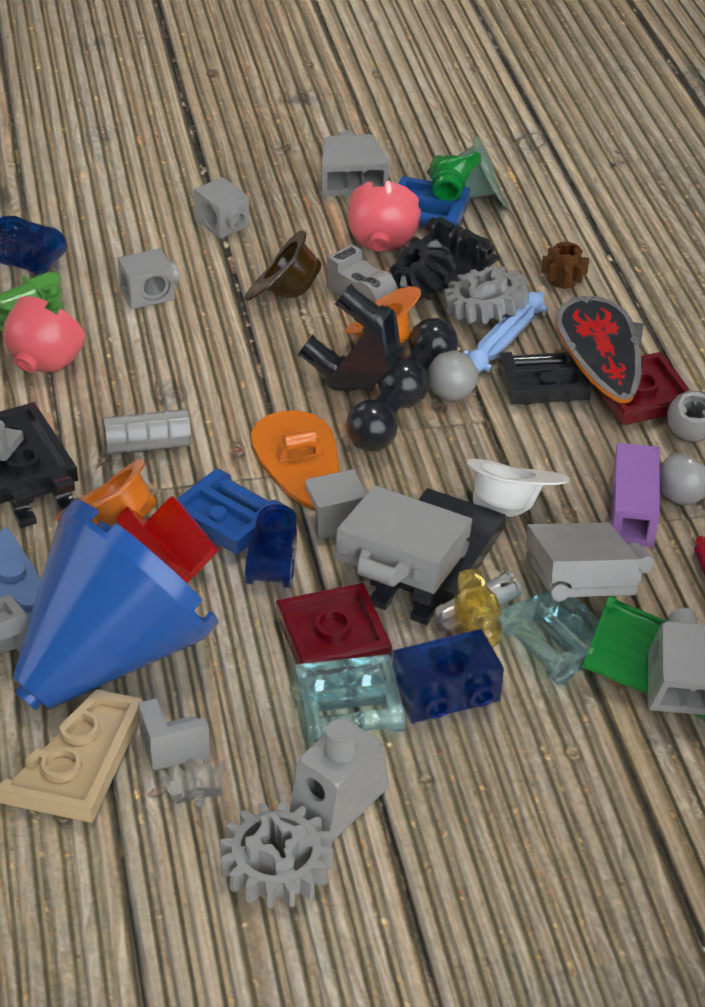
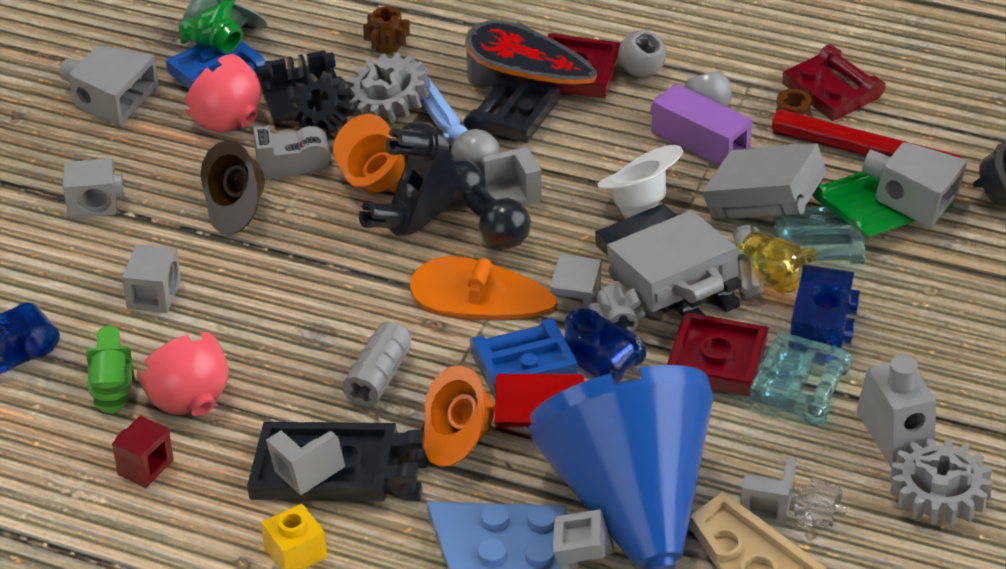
camera: 55 degrees left, 0 degrees up
(319, 537) = (619, 306): none -> light grey gear
(449, 412) = (513, 175): none -> light grey panel

